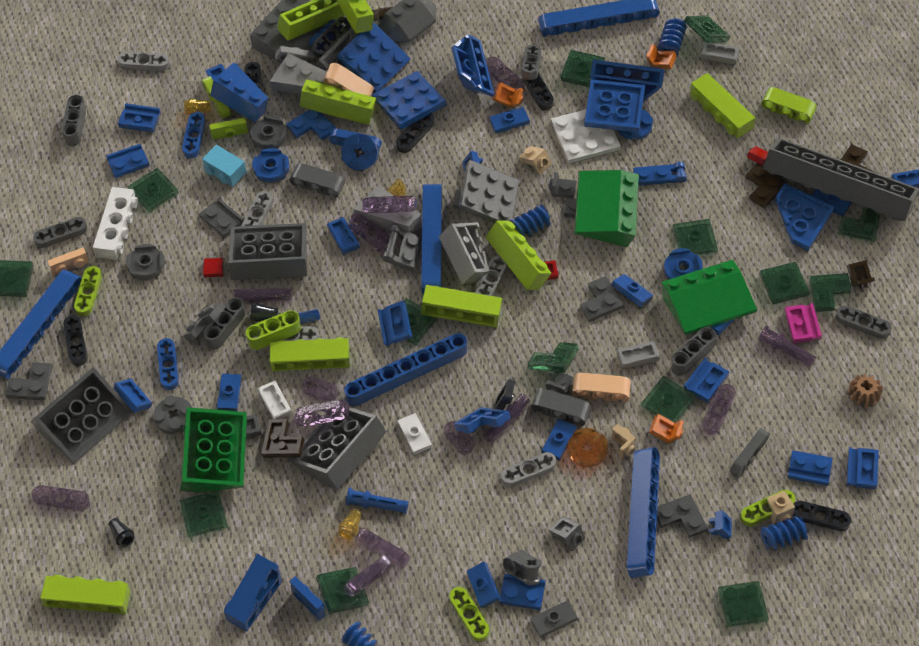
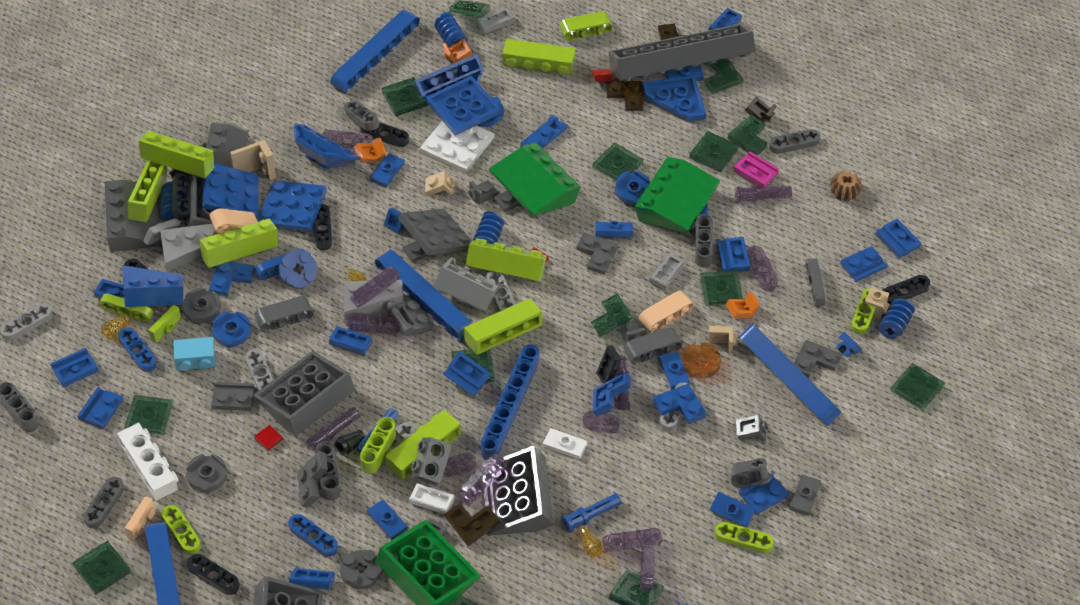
camera: 45 degrees left, 5 degrees down
(300, 373) = (435, 462): none -> dark grey brick
(413, 42) = (253, 158): none -> tan bracket
(535, 469) = (680, 399): none -> blue plate

